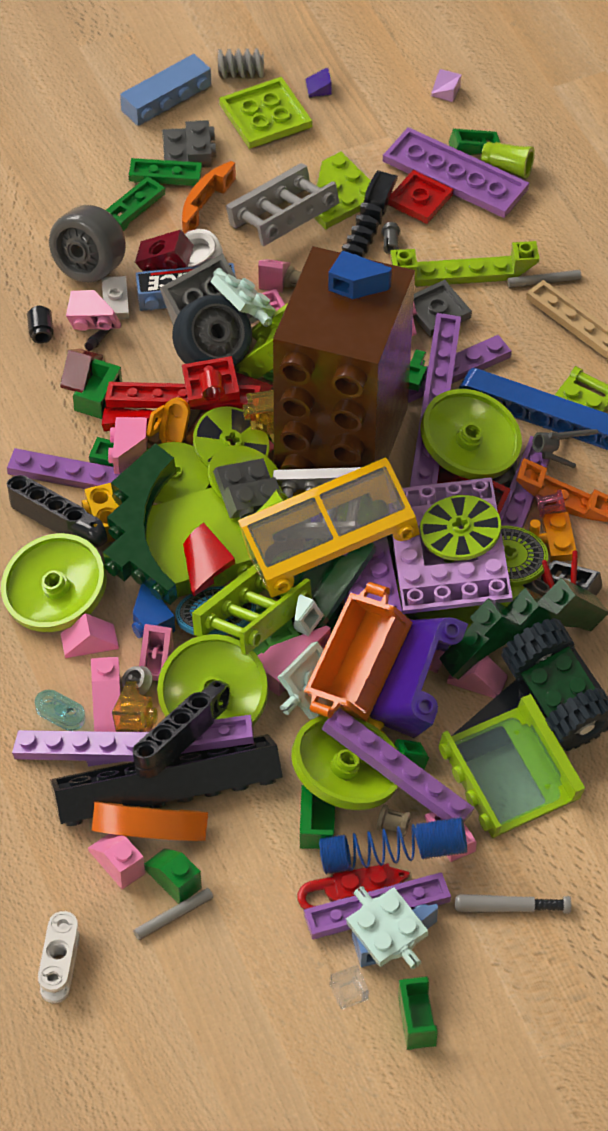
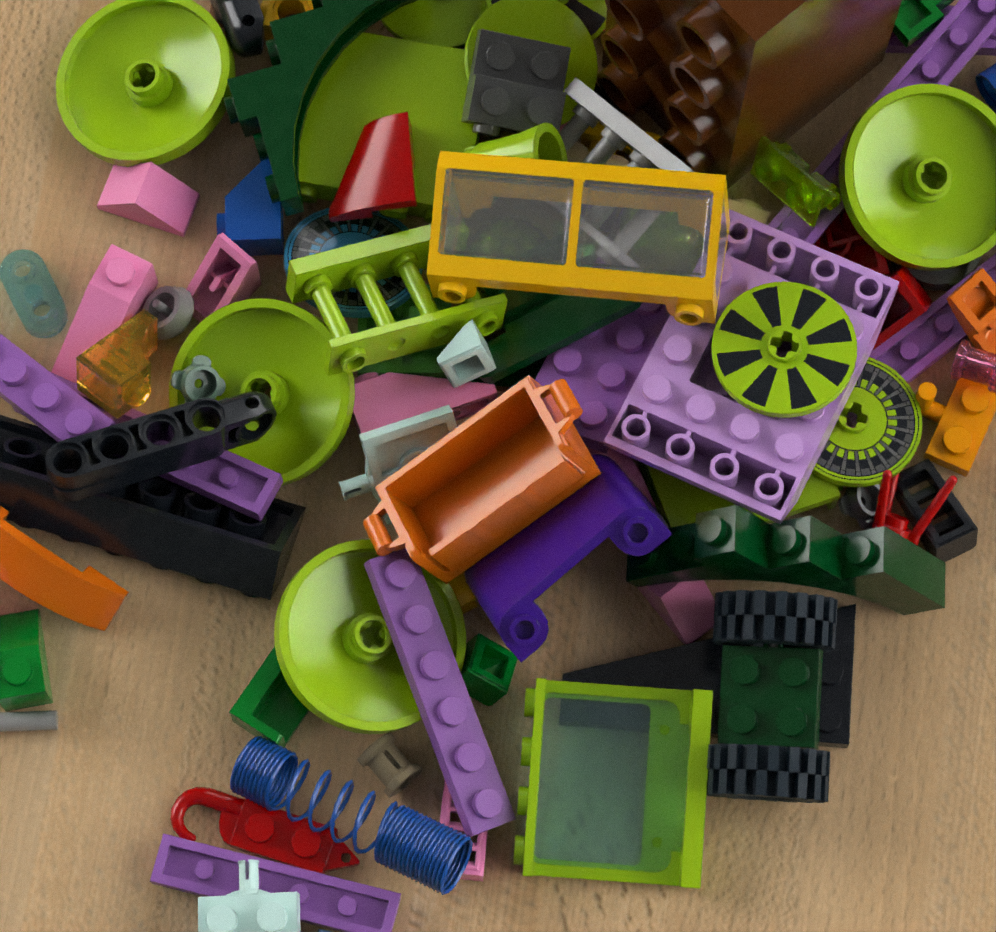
camera: 30 degrees right, 20 degrees up
(178, 692) = (200, 369): none -> sand green plate
(411, 465) = (789, 180): none -> clear neon green hinge

